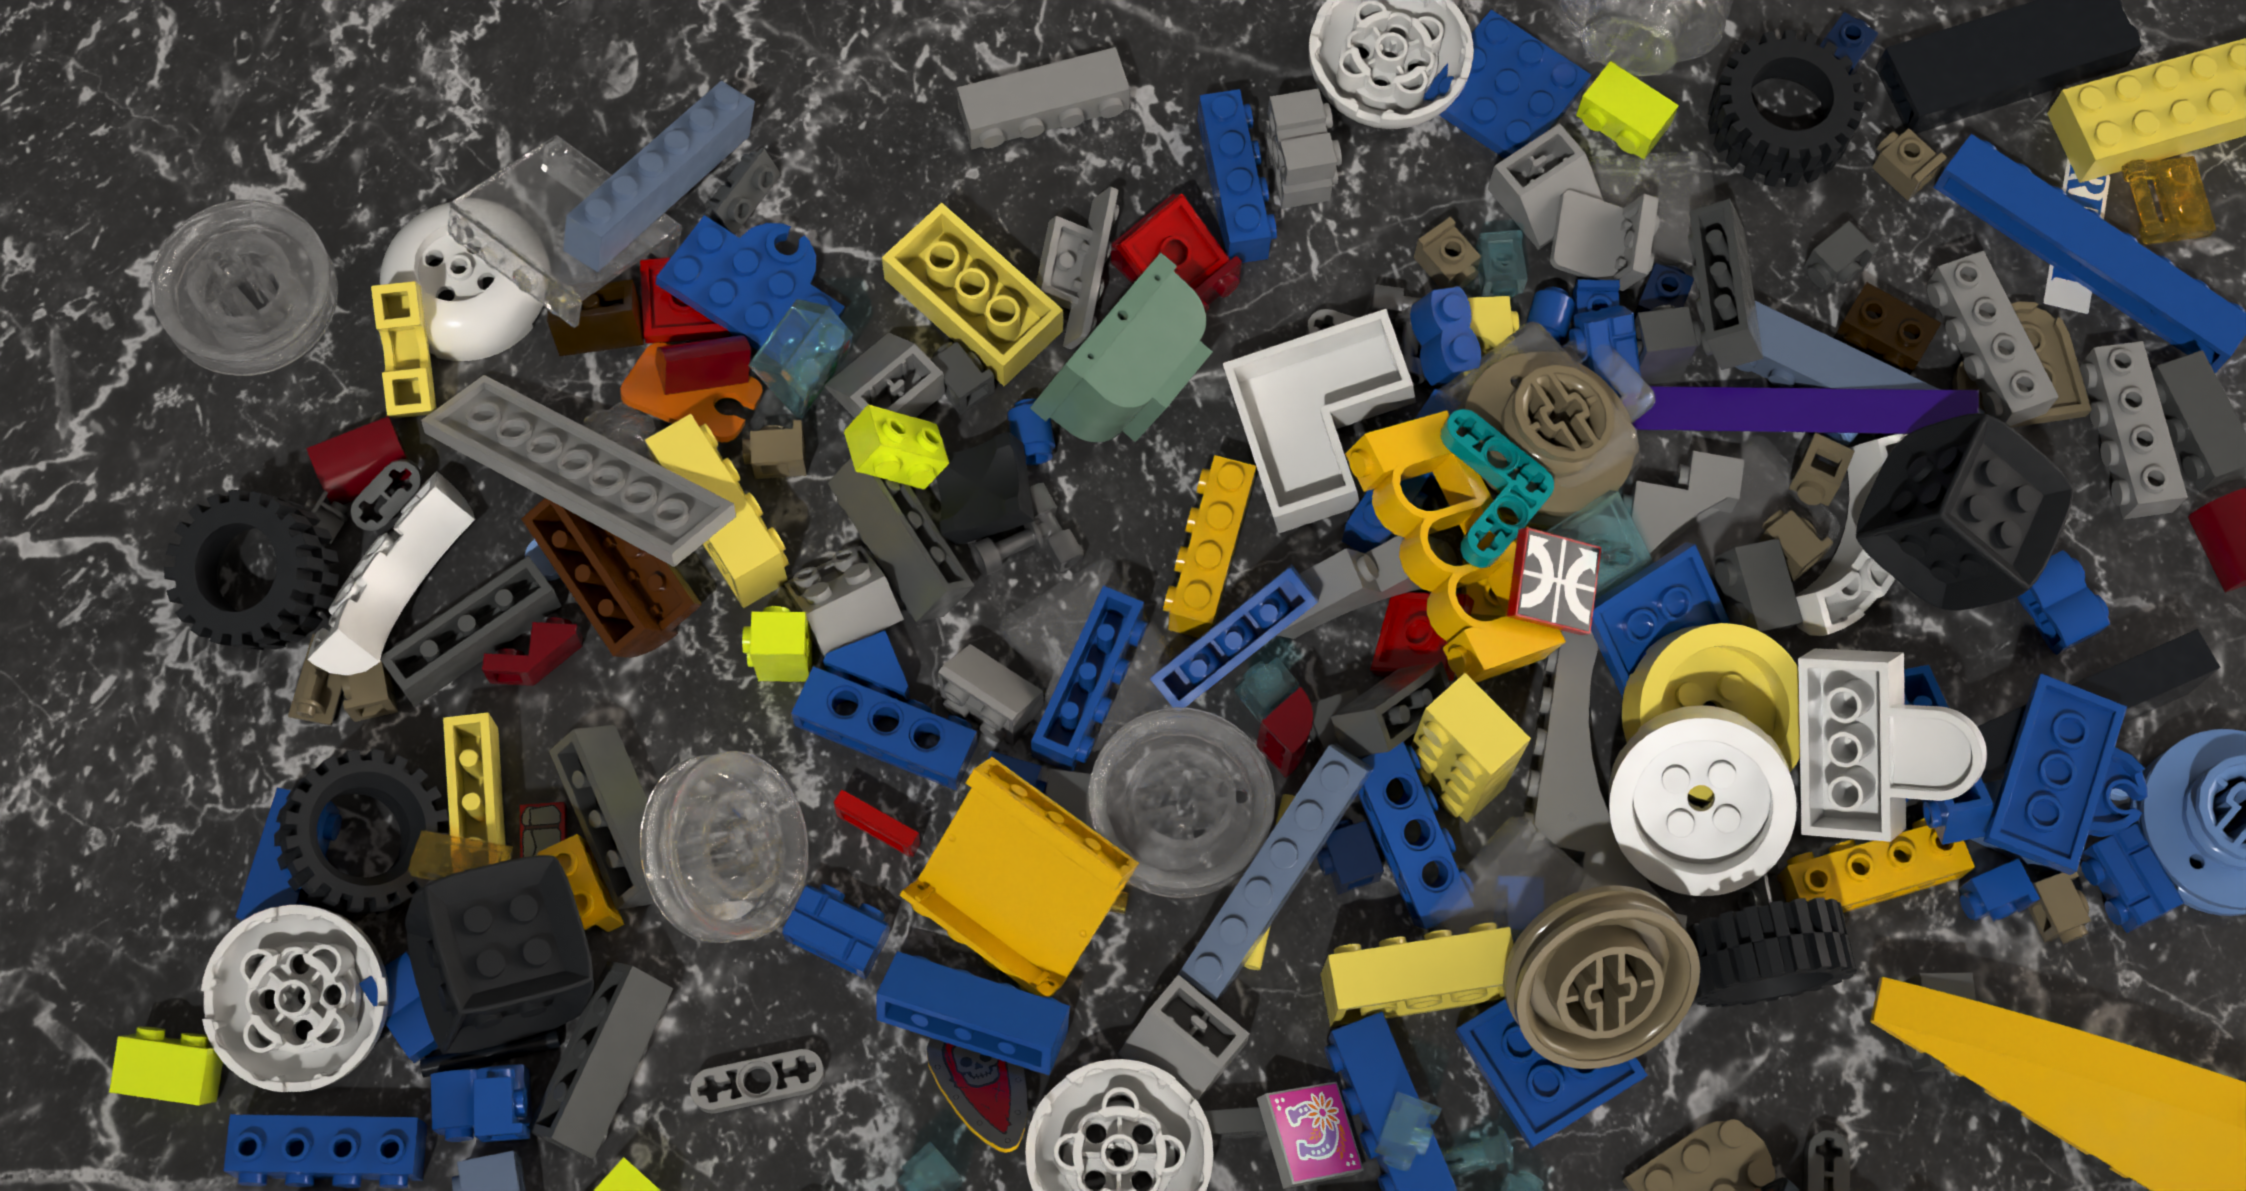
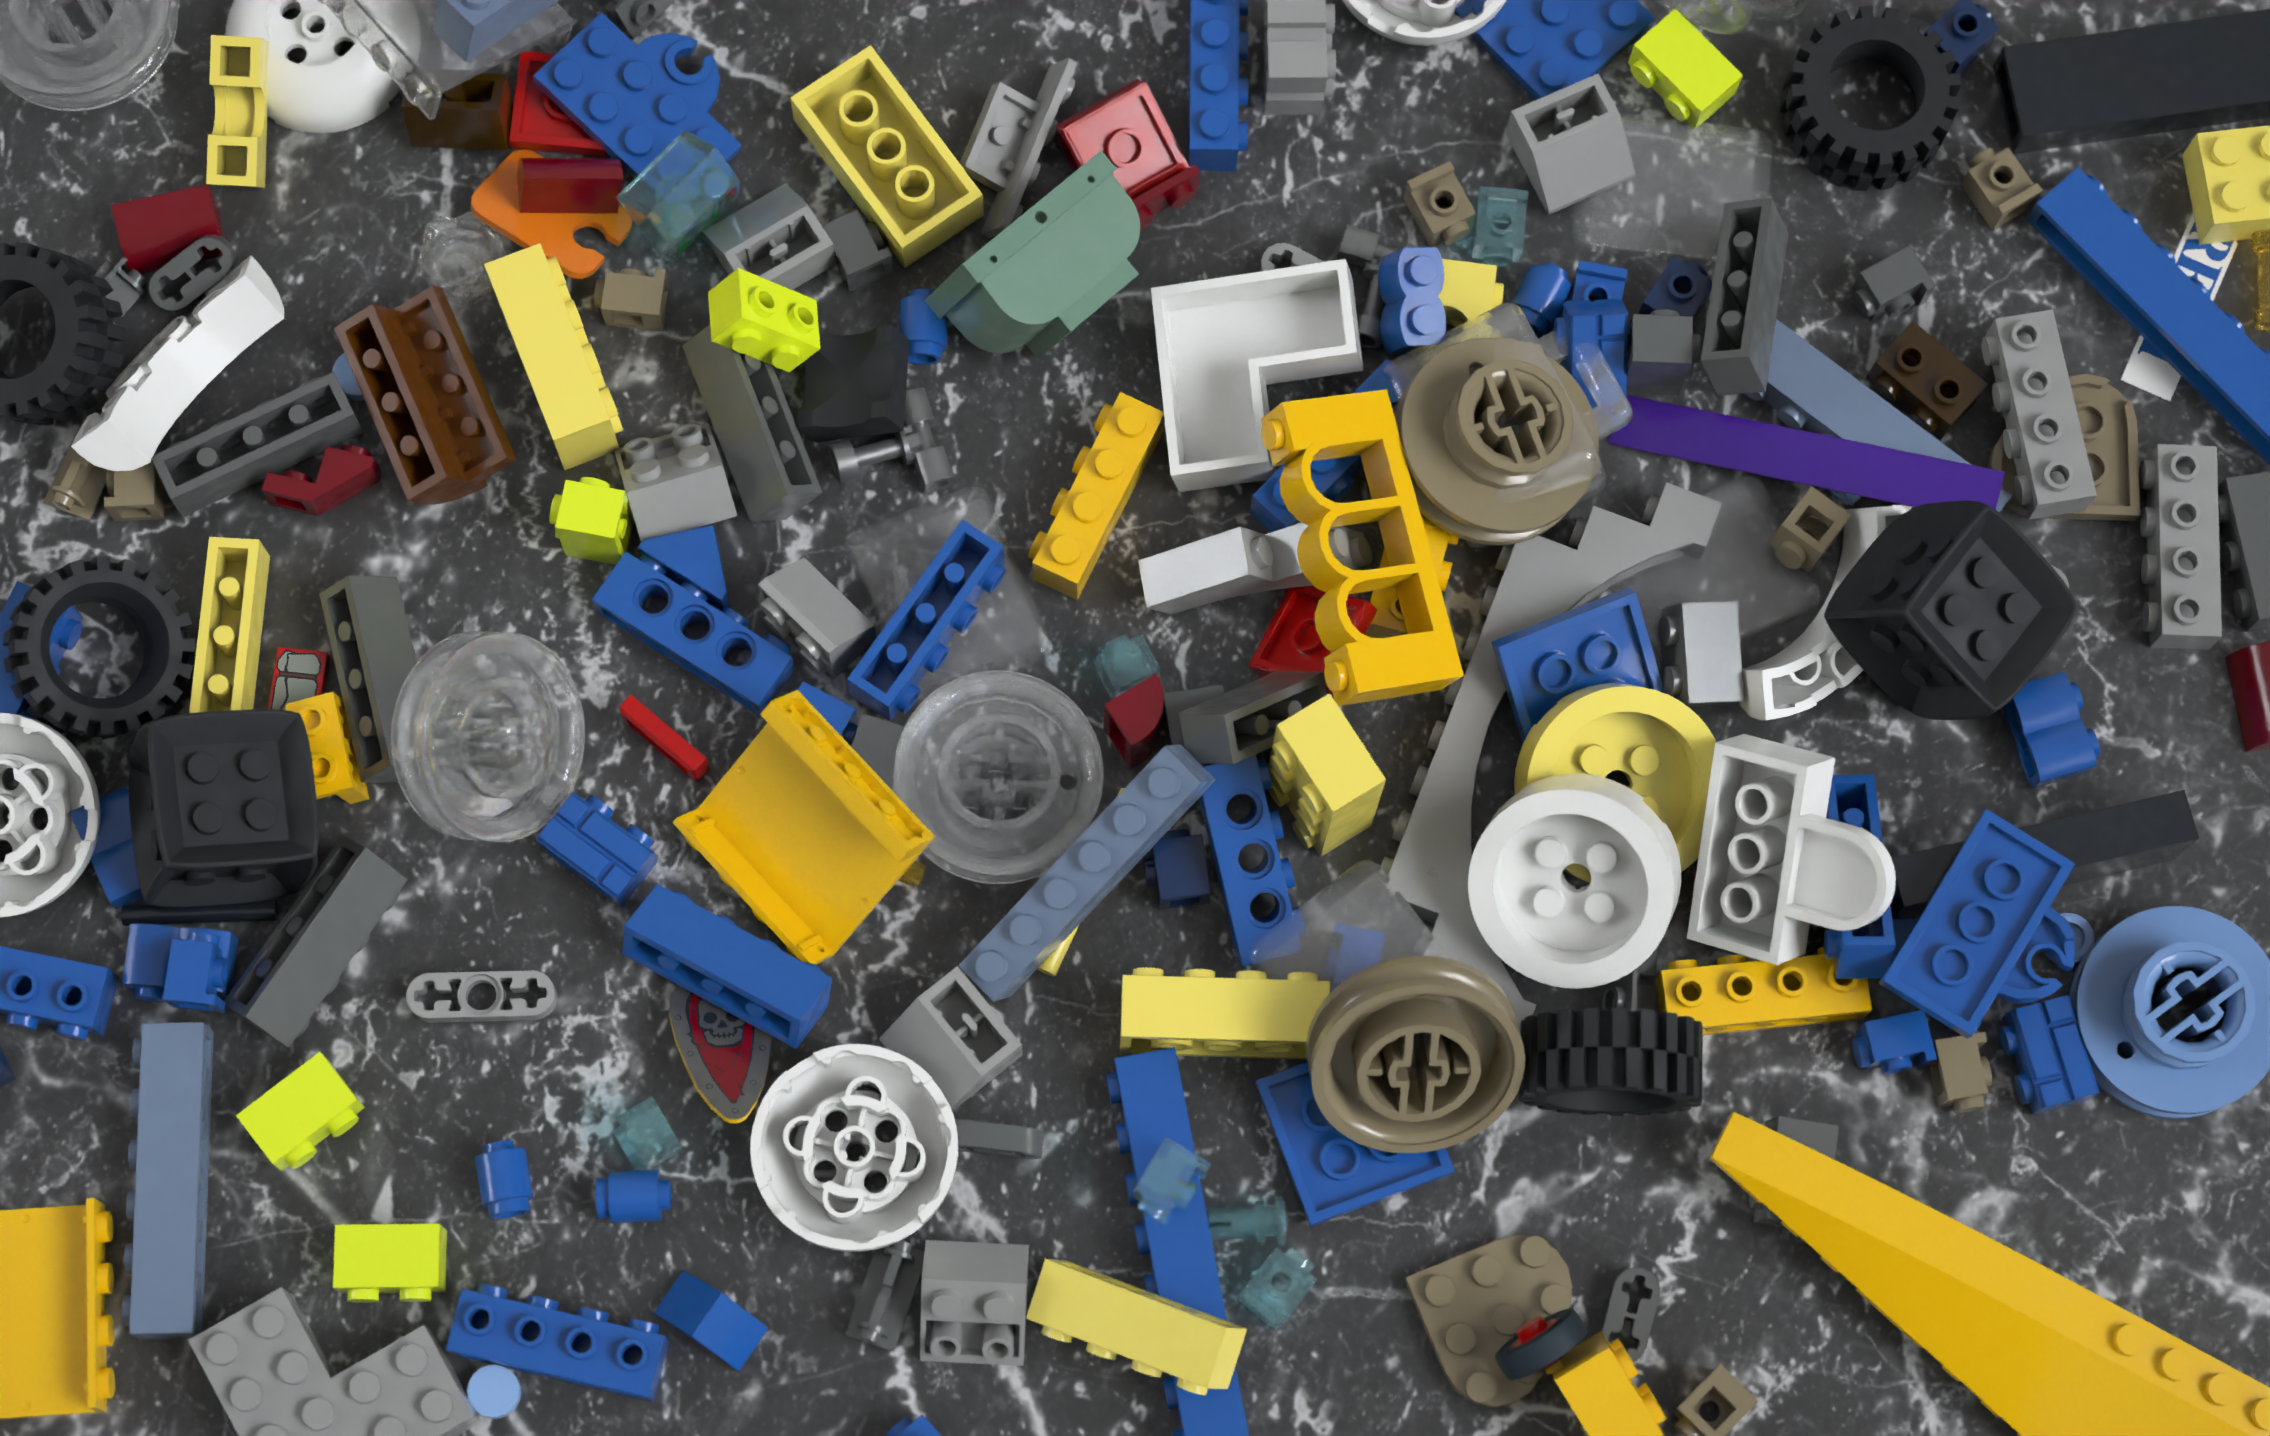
camera: 10 degrees right, 5 degrees up
(443, 855) = (185, 690): clear yellow slope -> none
(580, 470) = (405, 284): light grey plate -> none
(1234, 638) = (1097, 605): blue brick -> none
(1310, 1134) = (1068, 1166): tile -> none
(1513, 491) = (1438, 497): teal beam -> none
(1554, 581) = (1462, 606): tile -> none
(1604, 239) = (1621, 216): light grey bracket -> none
(1609, 526) = (1525, 576): clear light blue tile -> none
(1798, 541) = (1759, 608): dark tan brick -> none

